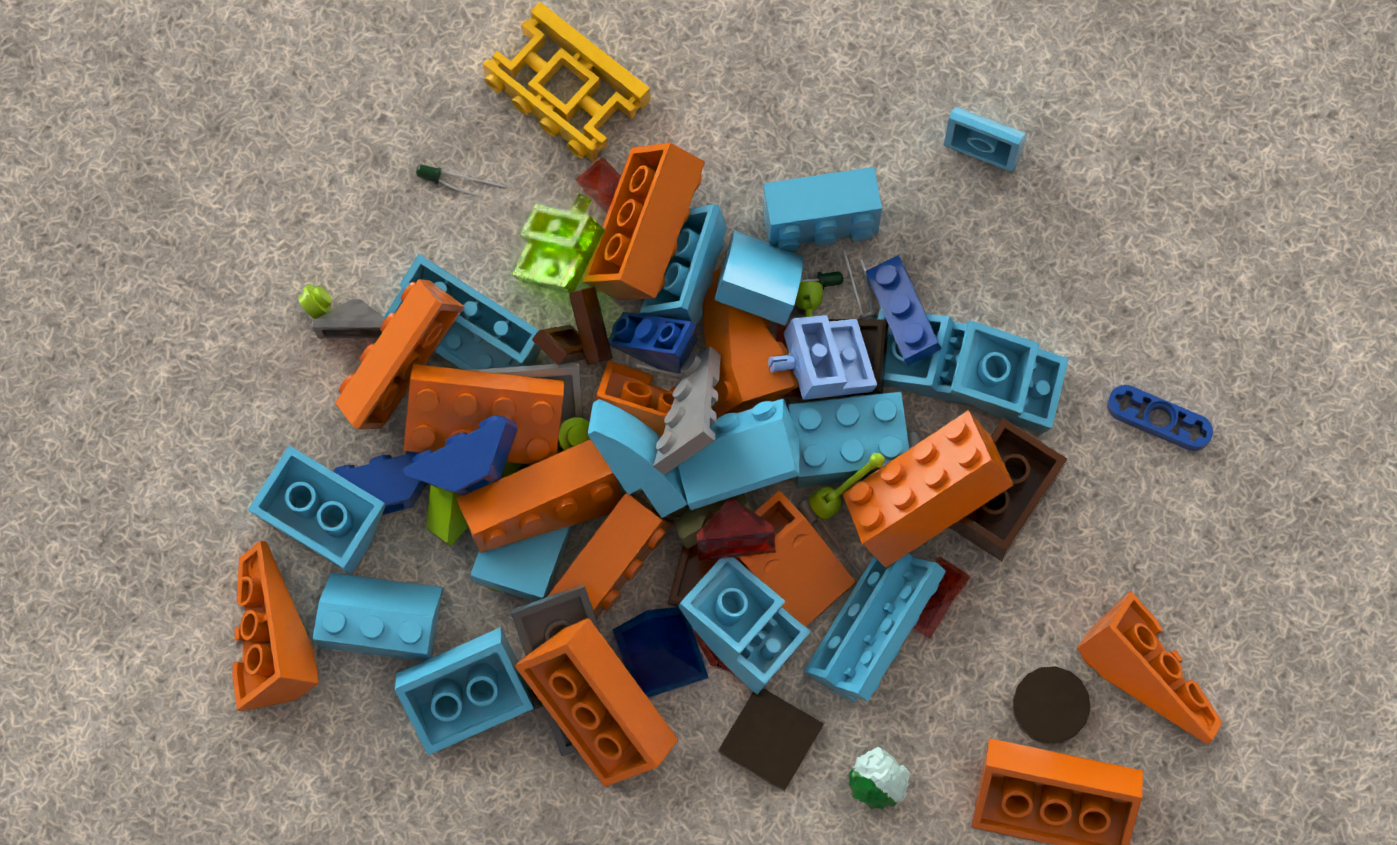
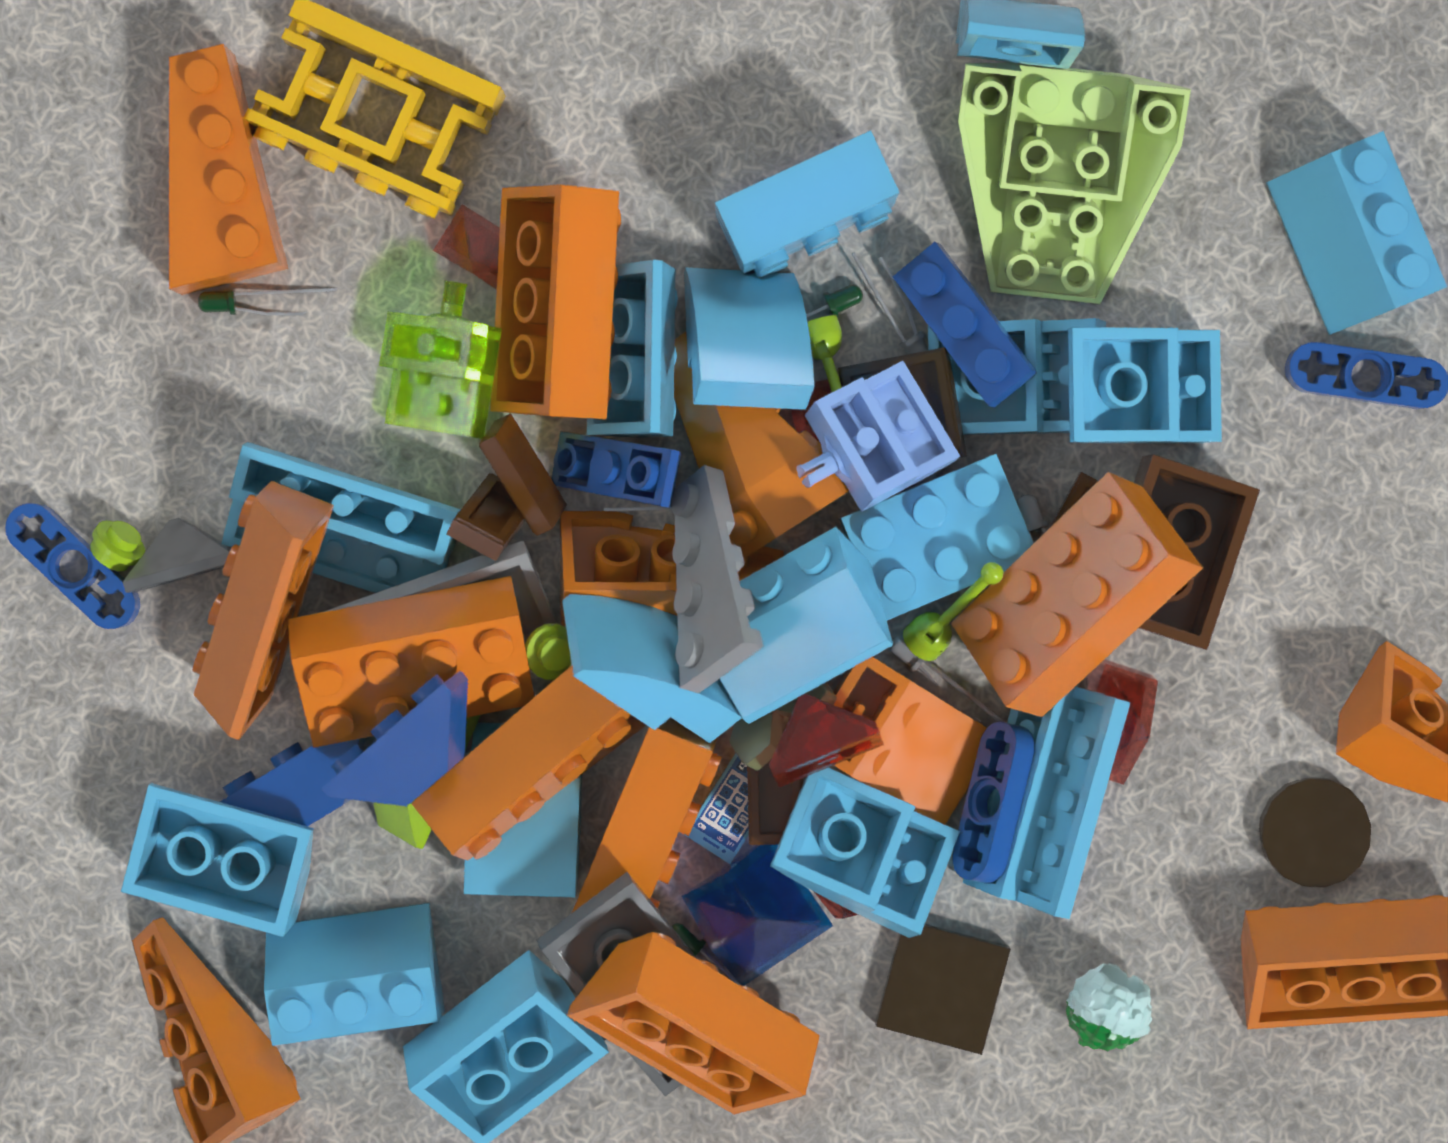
camera: 20 degrees left, 15 degrees up
(261, 291) = (52, 528): none -> blue beam
(452, 101) = (217, 183): none -> orange wedge
(655, 583) = (724, 813): none -> tile
(828, 636) = (975, 816): none -> blue beam
(991, 236) = (1064, 171): none -> yellowish green wedge
(1174, 325) = (1356, 233): none -> medium azure slope

